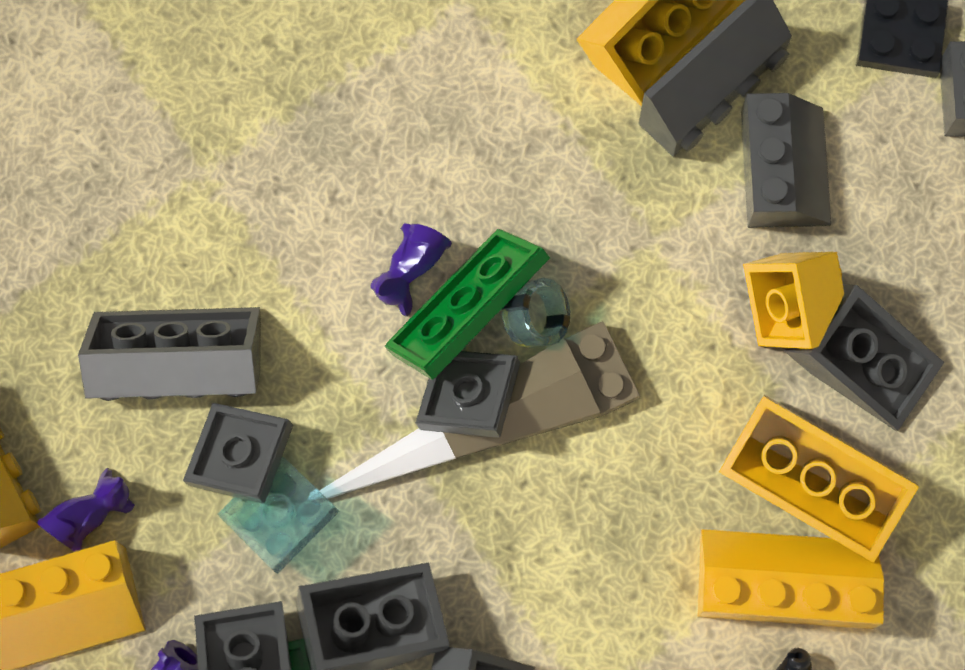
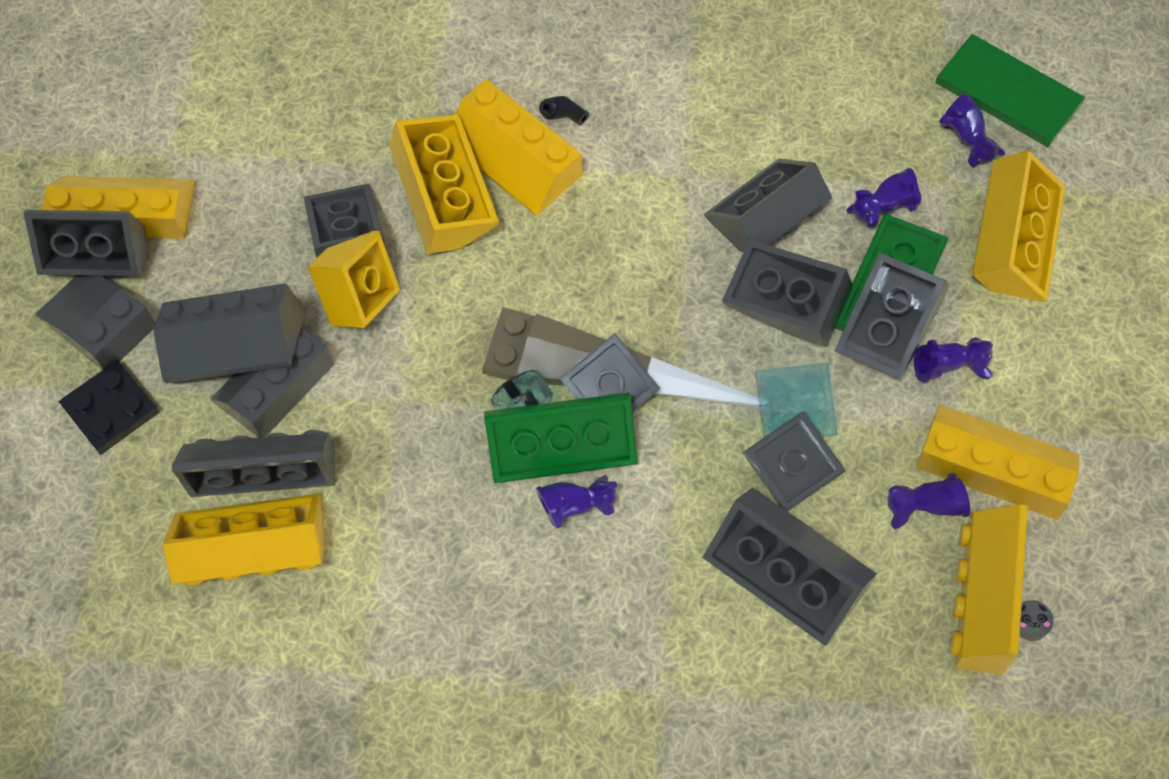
camera: 140 degrees left, 10 degrees down
(852, 151) = (228, 333): none -> dark grey slope

